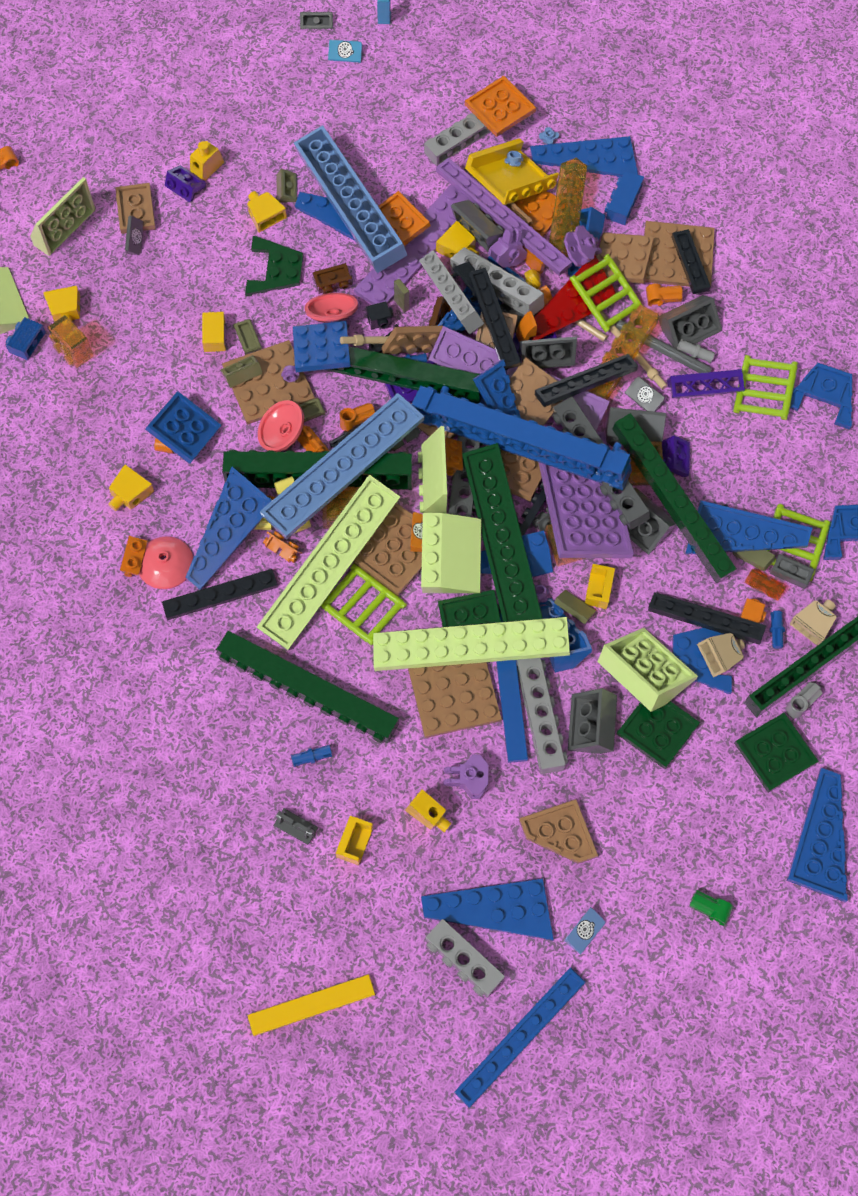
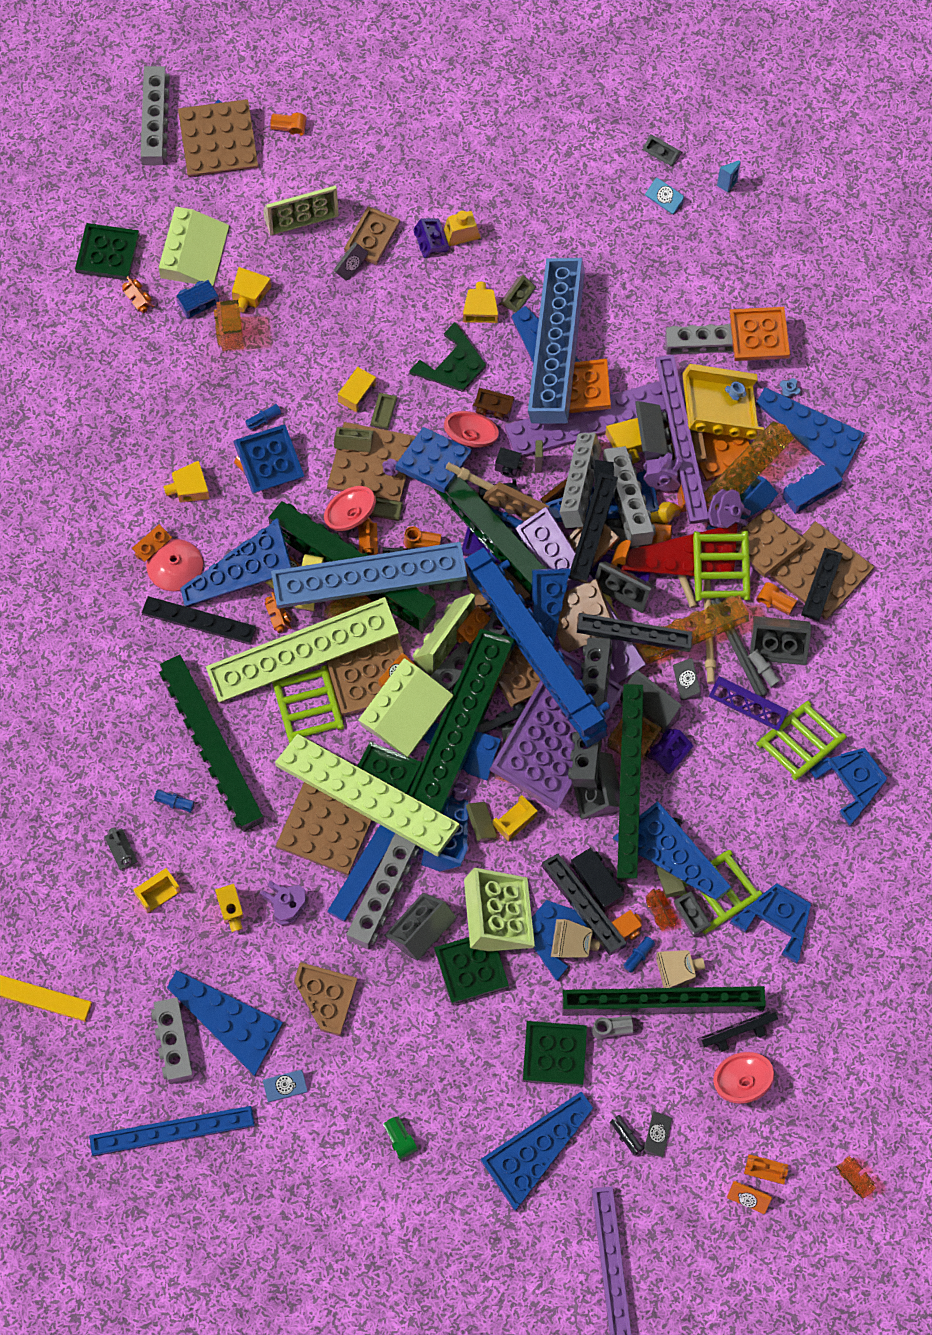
camera: 35 degrees right, 0 degrees up
(151, 399) = (263, 417): none -> blue axle
(700, 591) = (598, 879): none -> black brick

